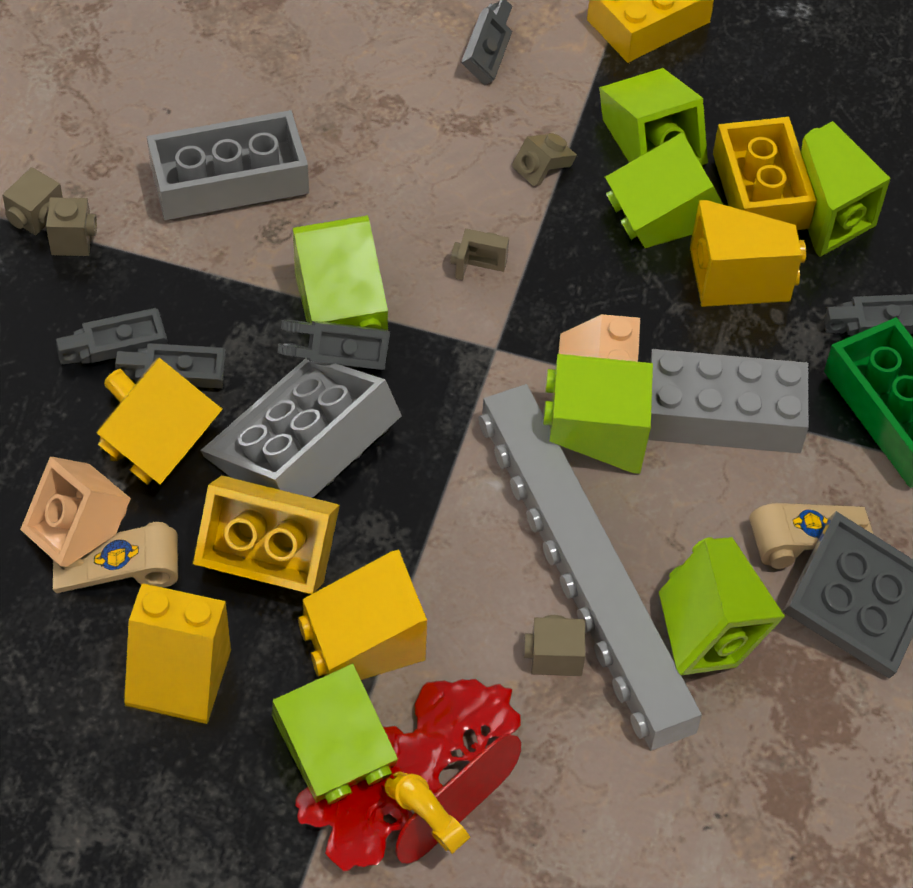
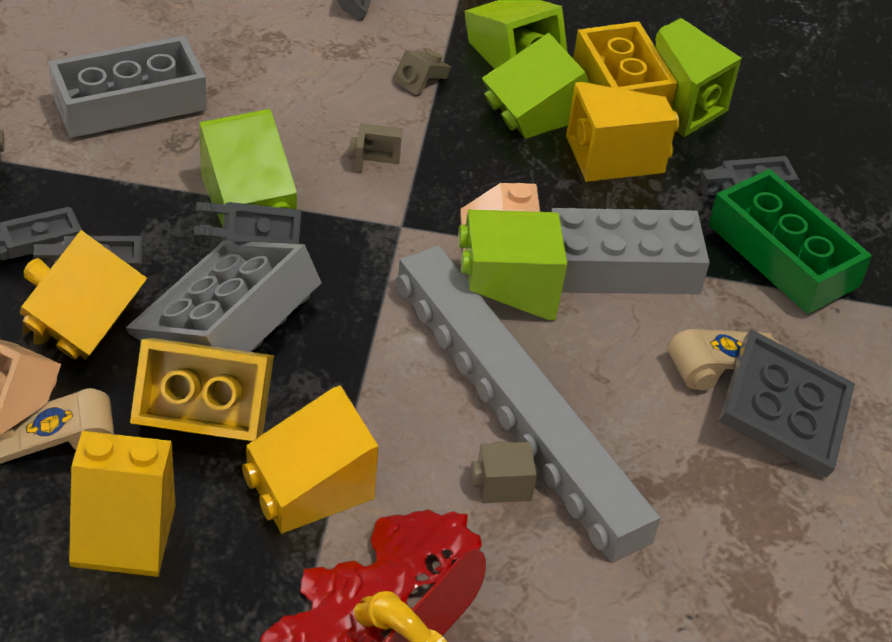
camera: 10 degrees left, 10 degrees down
(334, 734) = (294, 566): lime slope -> none
(716, 608) = (656, 421): lime slope -> none

